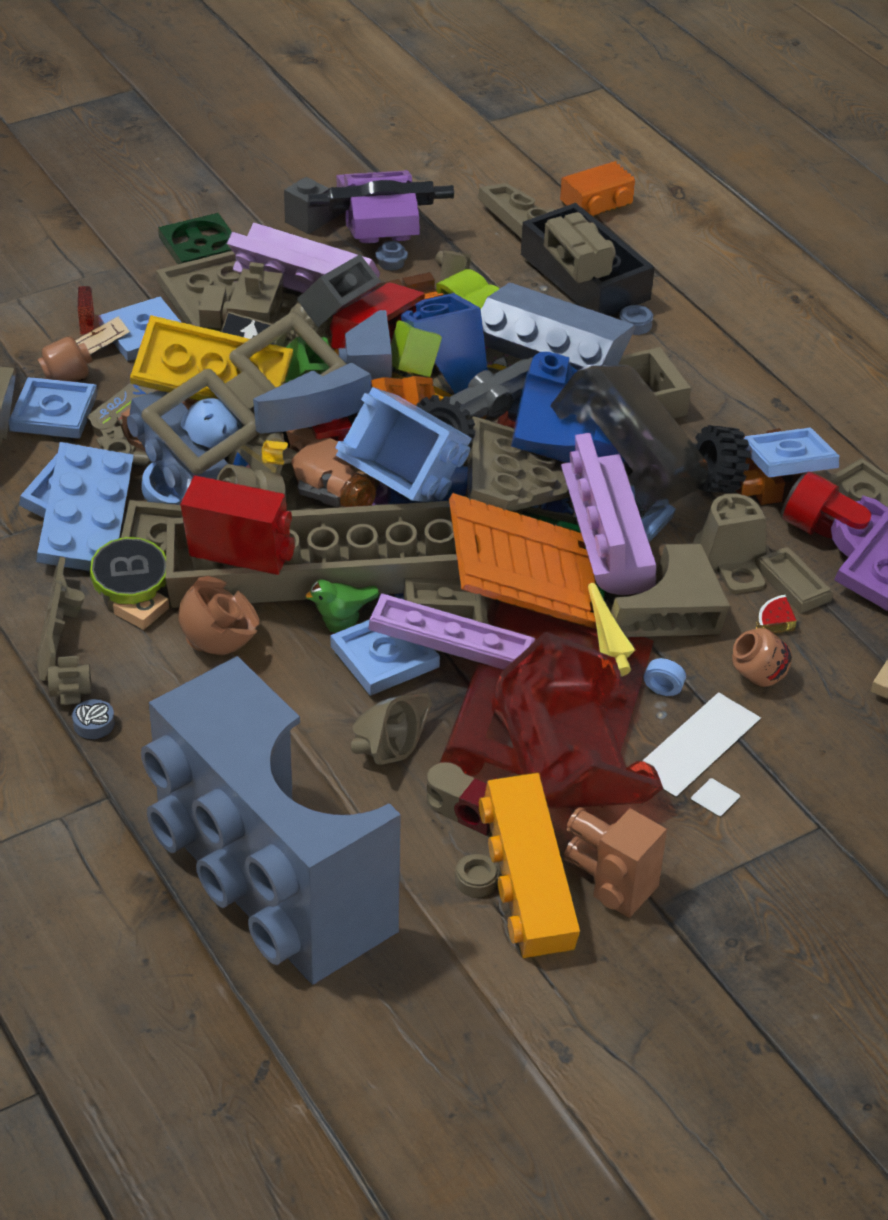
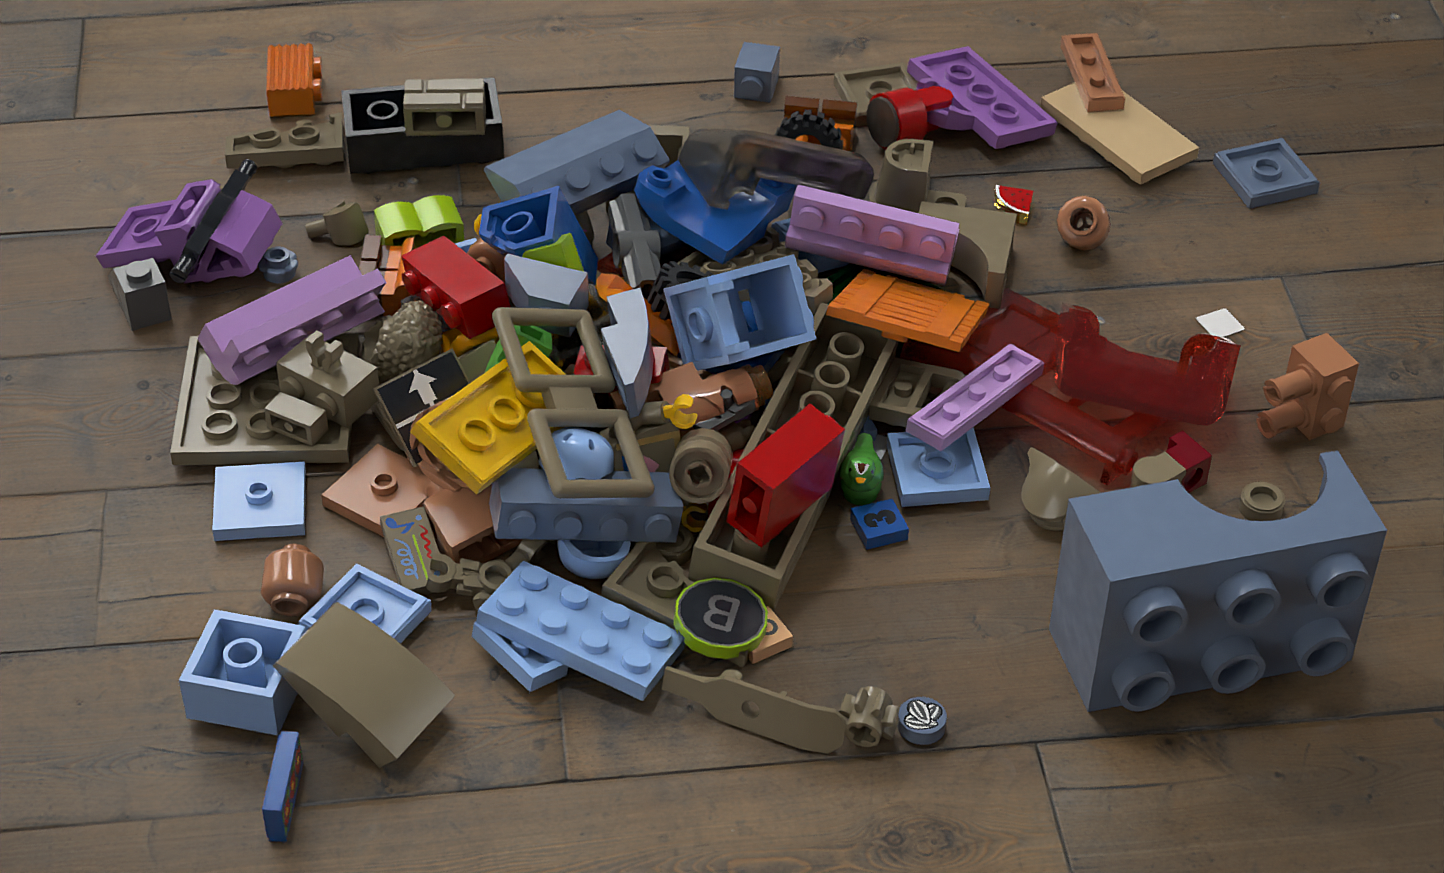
camera: 65 degrees left, 0 degrees up
(85, 309) = (198, 536): clear red tile -> none
(104, 335) = (253, 544): tan sticker -> none
(192, 228) = (120, 429): dark green piece -> none
(215, 618) = (844, 570): nougat cylinder -> none
(302, 638) = (879, 524): none -> blue tile
(338, 290) = (428, 286): dark grey slope -> none
(530, 866) = (1288, 443): light orange brick -> none
(610, 636) = (1022, 304): light yellow piece -> none
(639, 316) = (521, 134): sand blue tile -> none
(664, 677) = (1071, 291): light blue tile -> none
(700, 742) = (1145, 308): white sticker -> none
(791, 452) = (846, 93): light blue plate -> none
(794, 579) = (970, 174): dark tan tile -> none
(817, 409) = (756, 72): none -> sand blue brick

